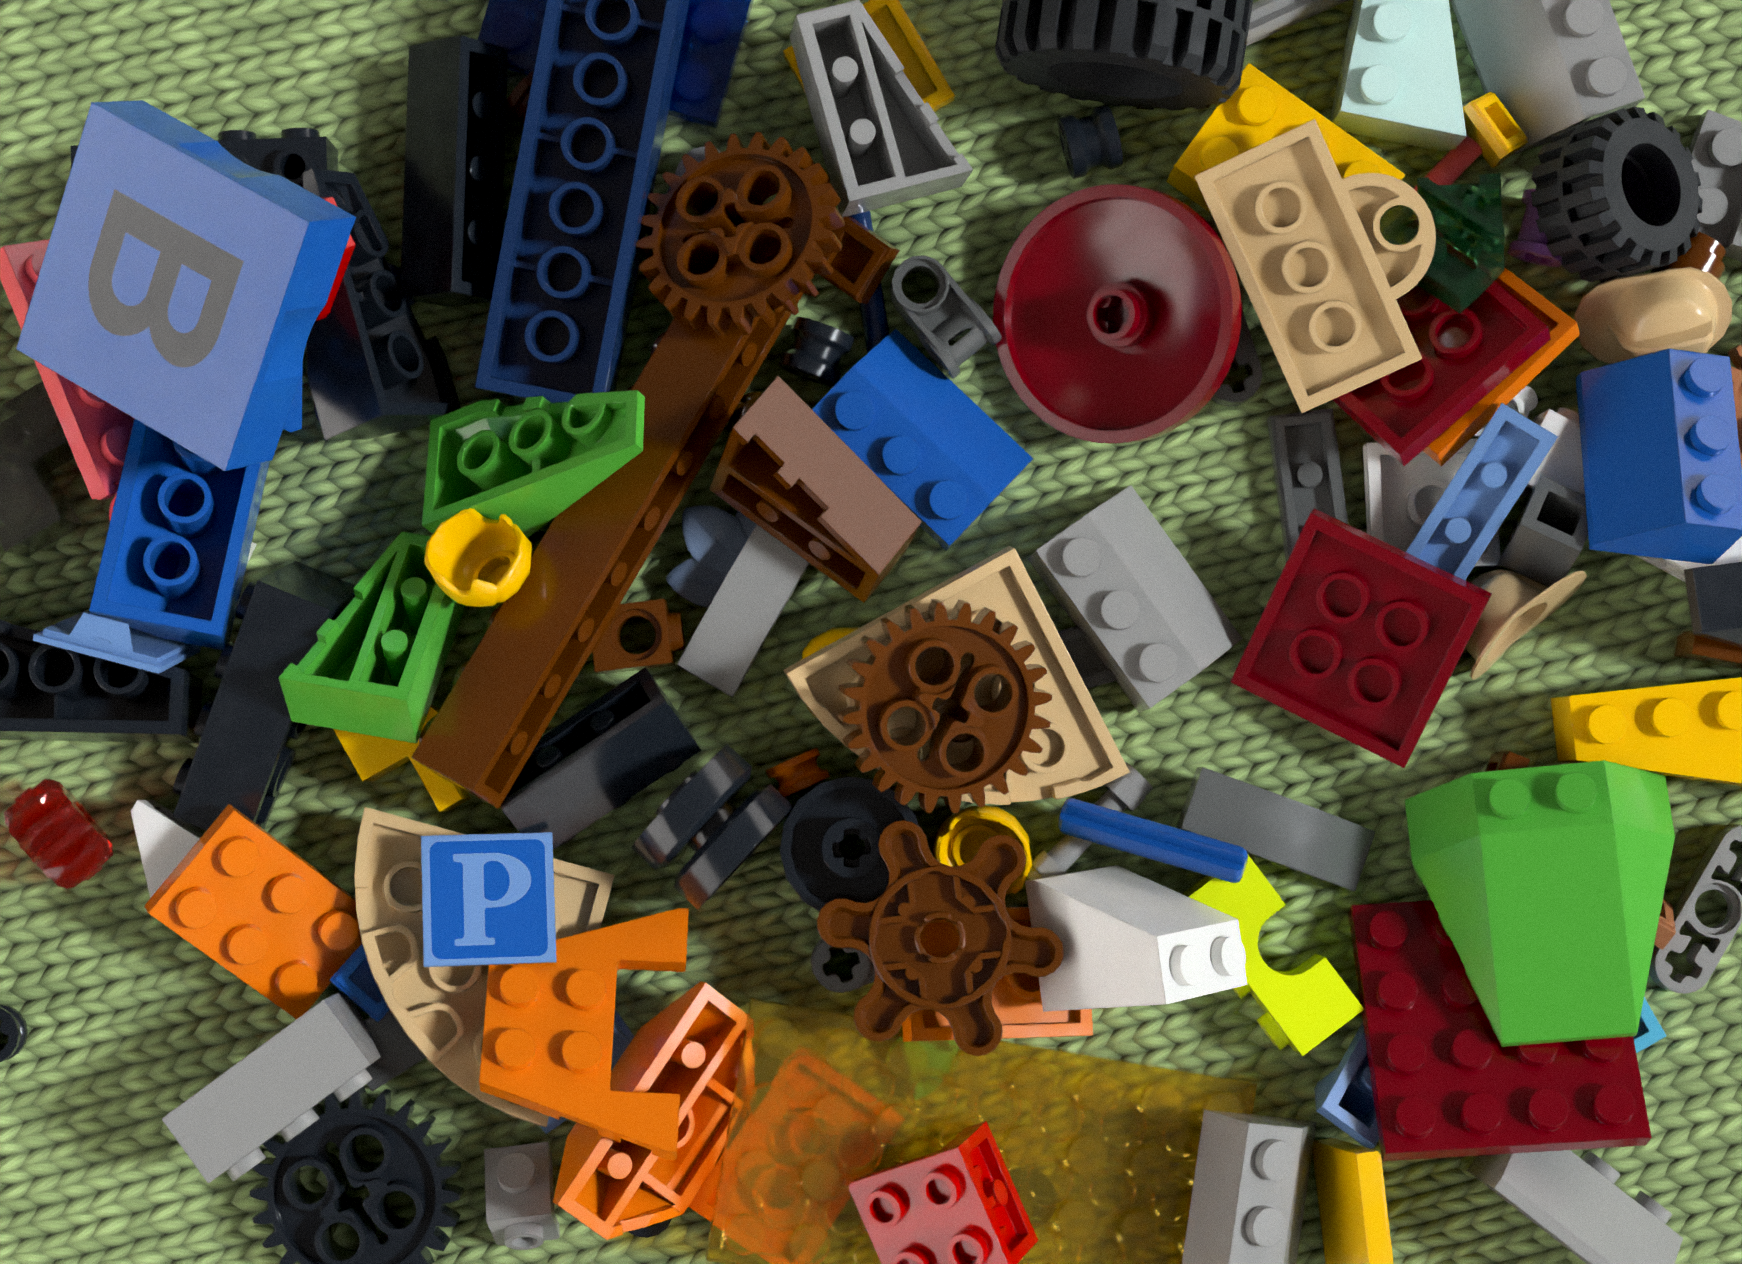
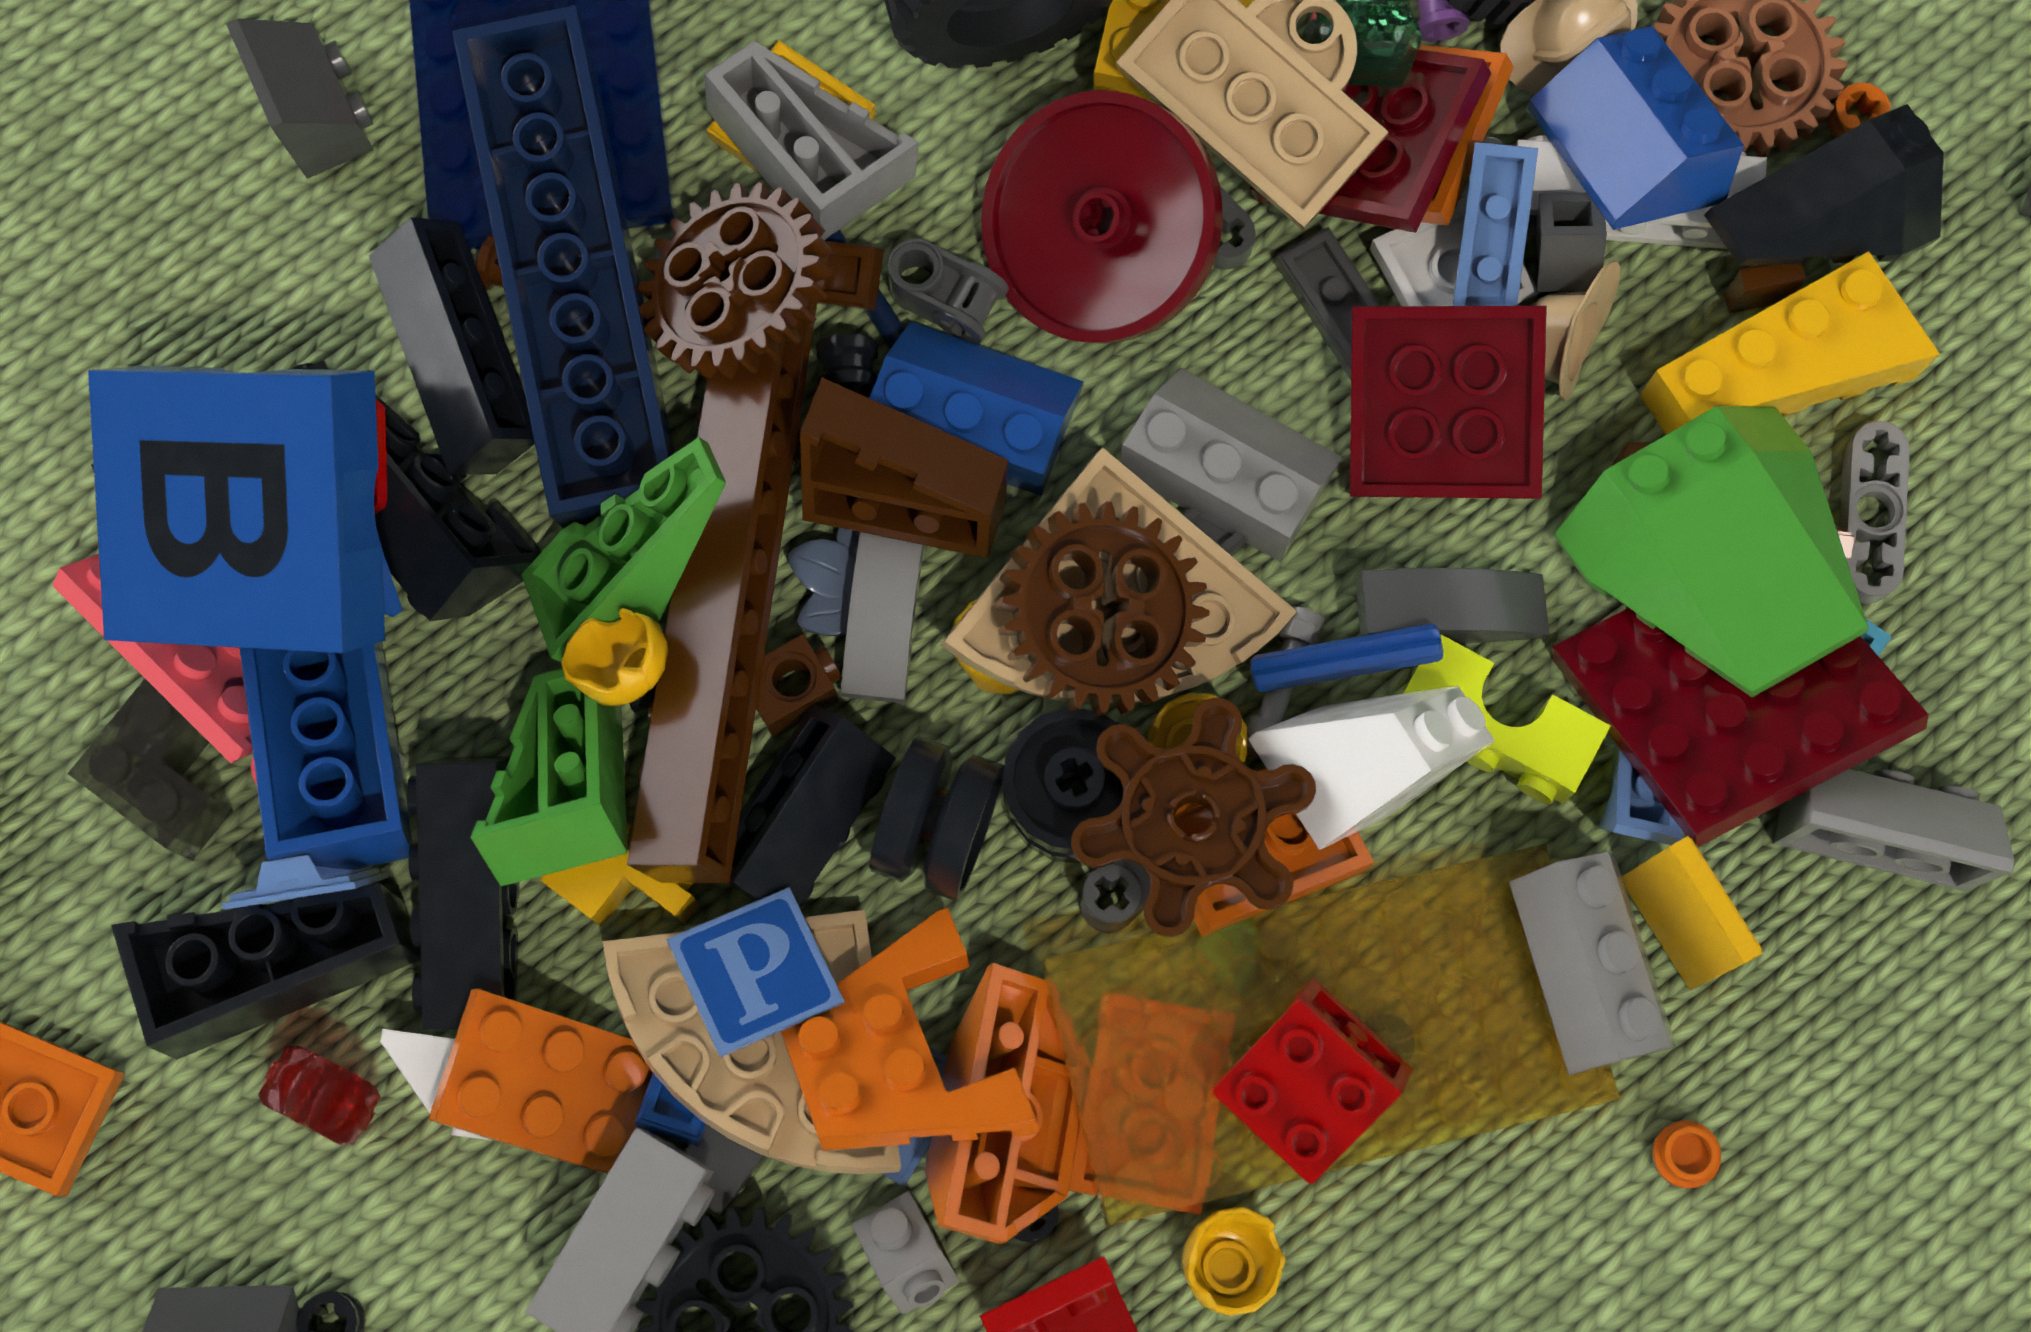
camera: 20 degrees left, 10 degrees down
(798, 773) = (993, 740): orange bush -> none
(1090, 141) = (1011, 92): black wheel -> none

